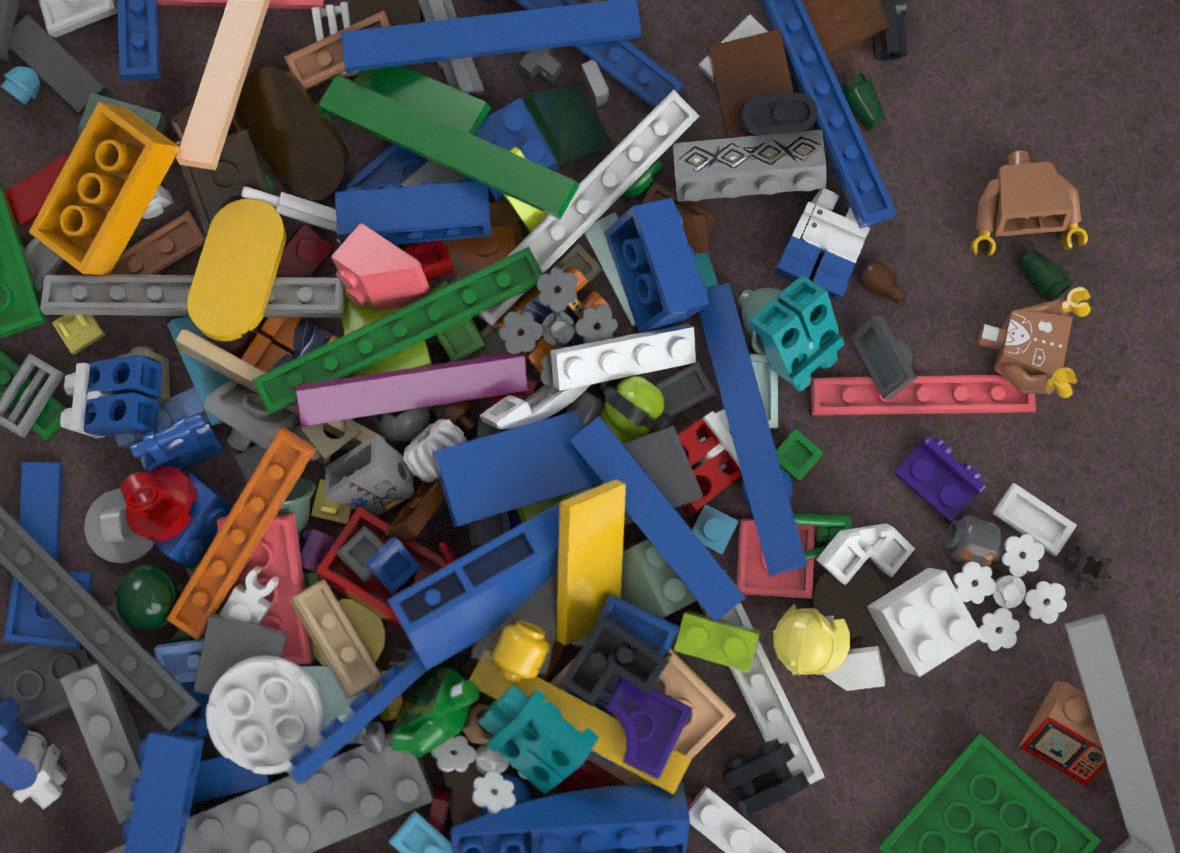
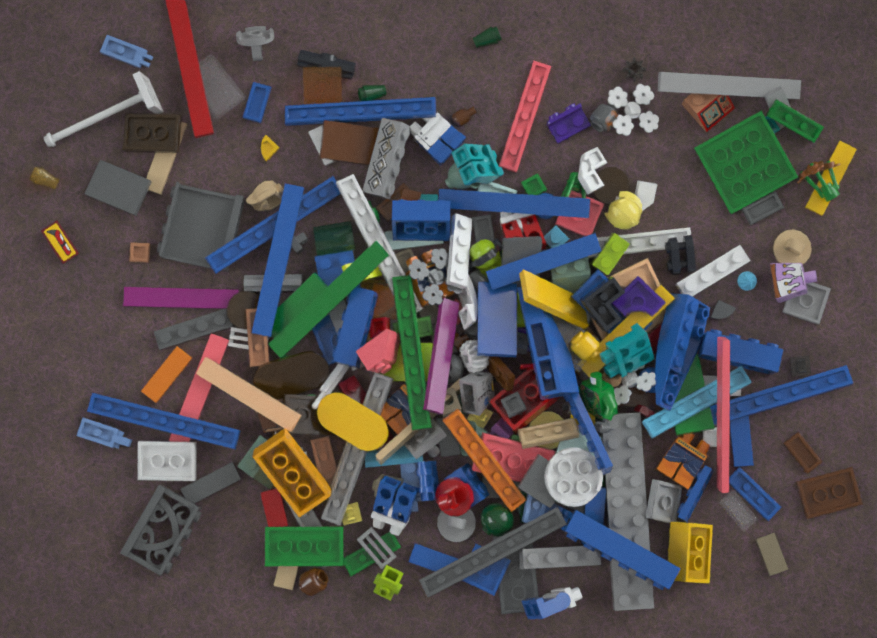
camera: 70 degrees left, 0 degrees up
(22, 84) = (216, 502): medium azure plate -> none
(248, 601) = (517, 469): white plate -> none
(393, 565) = (523, 392): blue tile -> none
(595, 83) = (316, 219): light grey tile -> none
(776, 114) = (367, 136): black brick -> none
(884, 356) = (501, 127): dark grey tile -> none
(924, 621) = (633, 154): white brick -> none
(1028, 201) = (449, 33): nougat torso -> none
(1033, 517) = (602, 85): white tile -> none
(1035, 345) = (520, 55): nougat torso -> none

